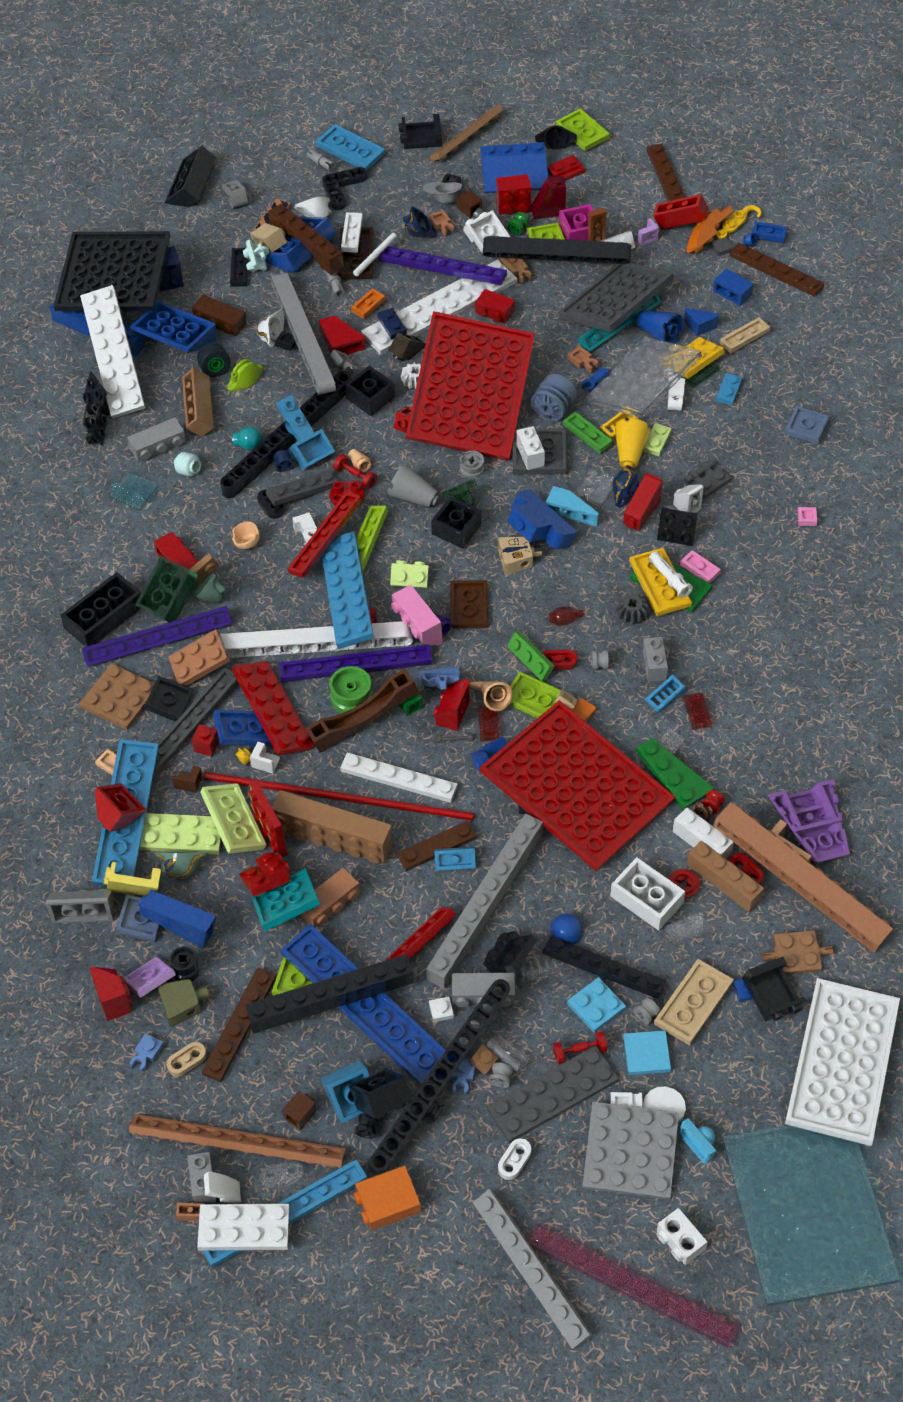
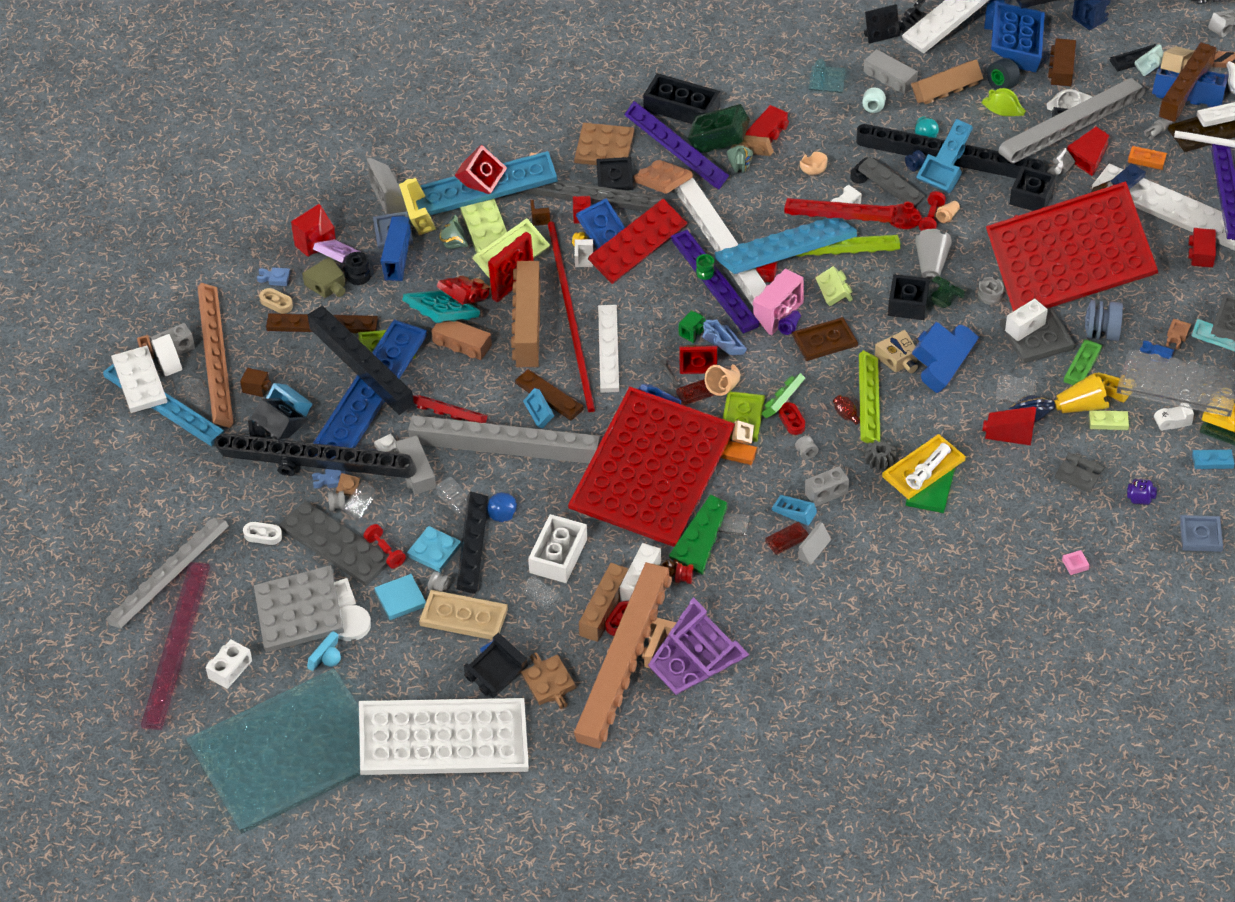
camera: 70 degrees right, 5 degrees down
(335, 728) = (680, 305): reddish brown arch -> none
(344, 657) = (705, 266): none -> green wheel
(349, 688) = (678, 283): bright green wheel -> none
(387, 1198) = (197, 461): orange brick -> none
(509, 952) = (447, 465): black plate -> none
(555, 592) = (869, 397): none -> lime plate
(571, 506) = (980, 372): medium azure slope -> none
(677, 526) = (995, 460): black hinge -> none
(689, 498) = (1037, 460): white slope -> none
(692, 880) = (578, 573): red gear -> none
(700, 567) = (961, 494): bright pink plate -> none
(713, 693) = (814, 544): none -> light grey slope
(749, 445) = (1141, 491): none -> dark purple head

